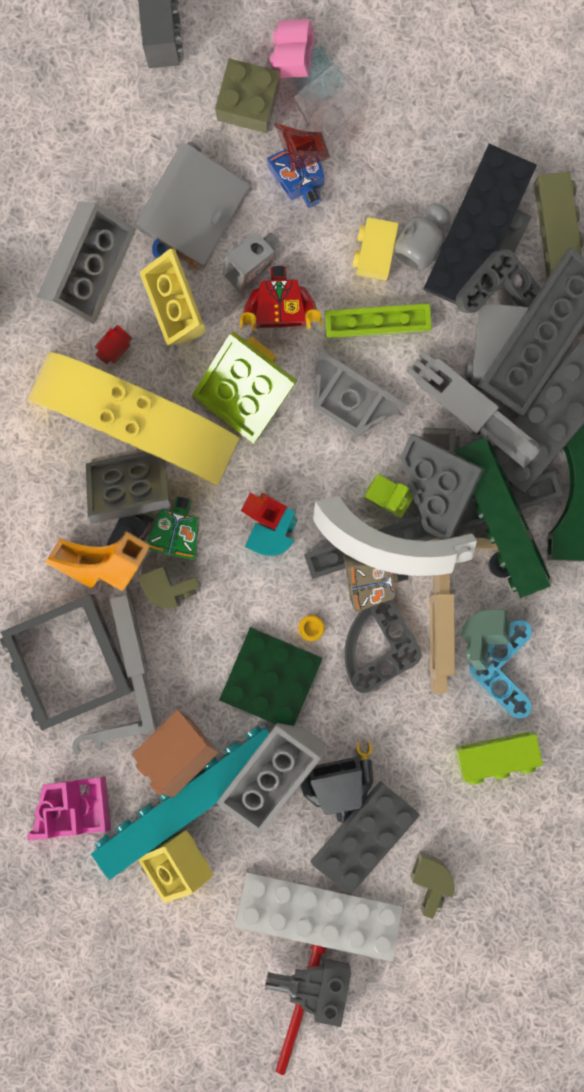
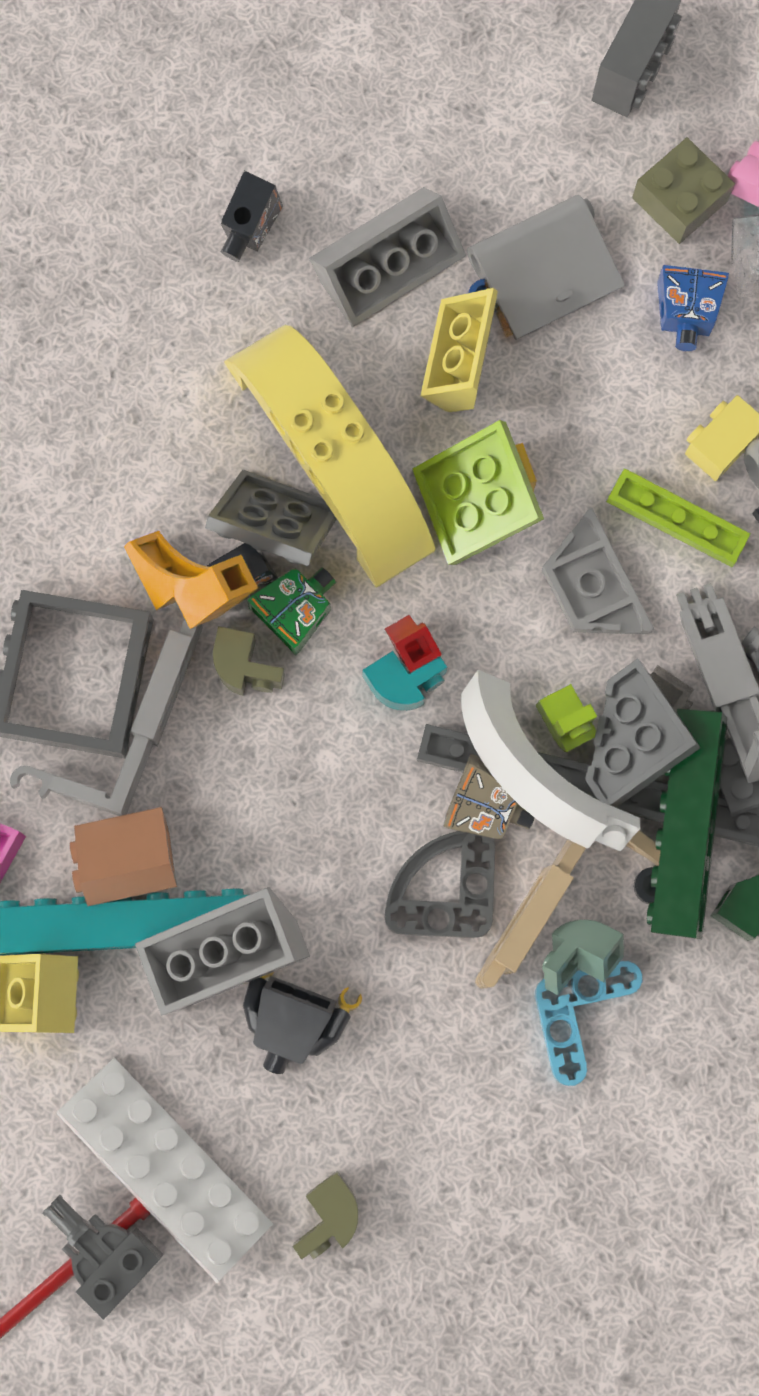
camera: 30 degrees right, 10 degrees down
(113, 345) = (359, 360): red brick -> none
(249, 260) = (573, 361): light grey torso -> none
(270, 678) = (294, 843): dark green plate -> none
(279, 304) = (576, 429): red torso -> none
(301, 146) = (710, 275): clear red slope -> none
(311, 628) = (379, 816): yellow tile -> none
(365, 838) = (282, 1108): dark grey plate -> none
(498, 757) = (506, 1114): lime brick -> none

